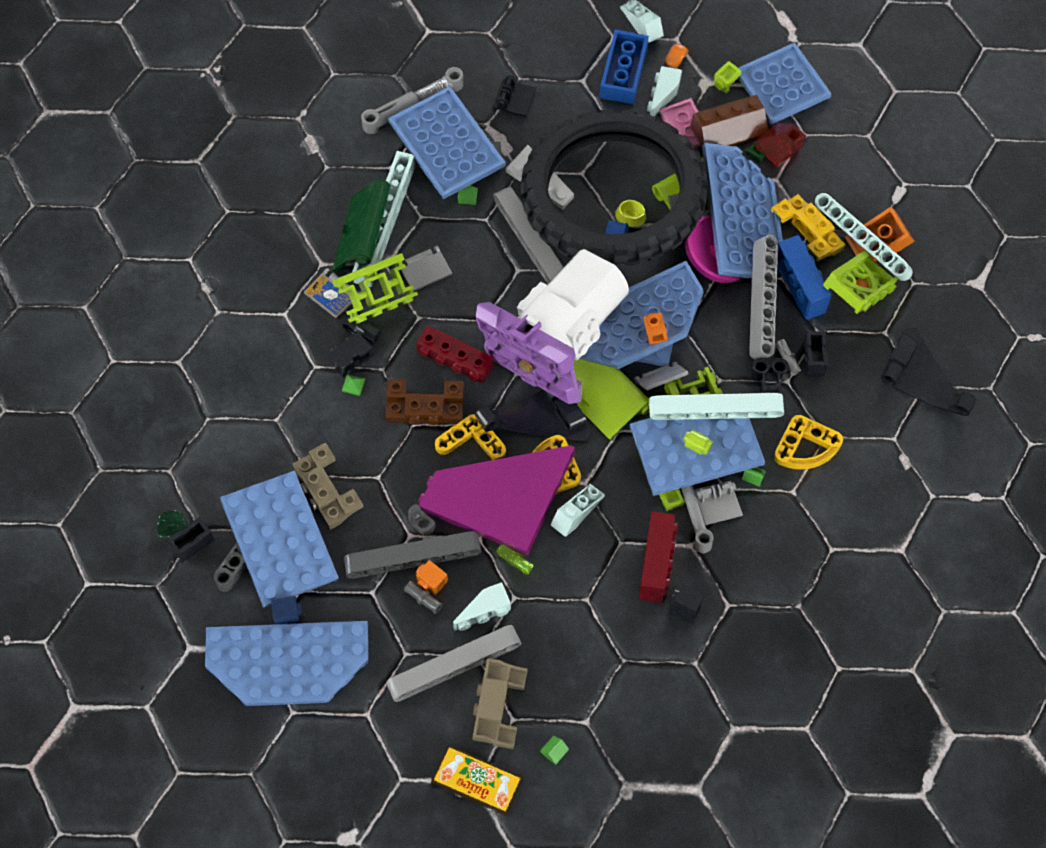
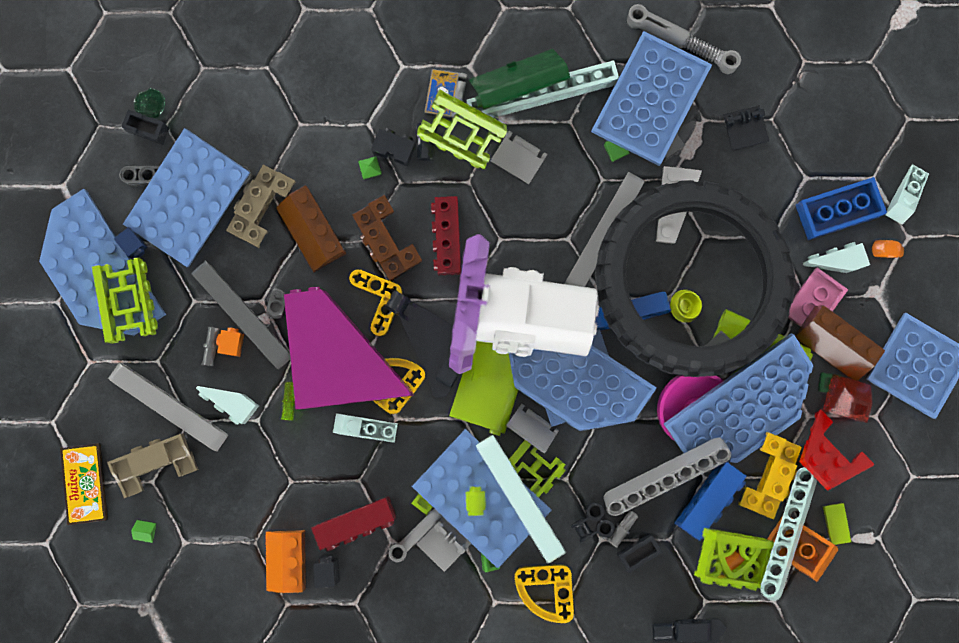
camera: 65 degrees right, 20 degrees up
(329, 655) = (109, 304): none -> lime fence
(375, 457) = (310, 229): none -> reddish brown slope
(655, 328) = (566, 400): orange brick -> none
(656, 638) = (285, 561): none -> orange slope
(726, 76) = (891, 309): lime bracket -> none
(818, 181) = (825, 460): none -> red wing
(873, 204) = (837, 523): none -> lime tile

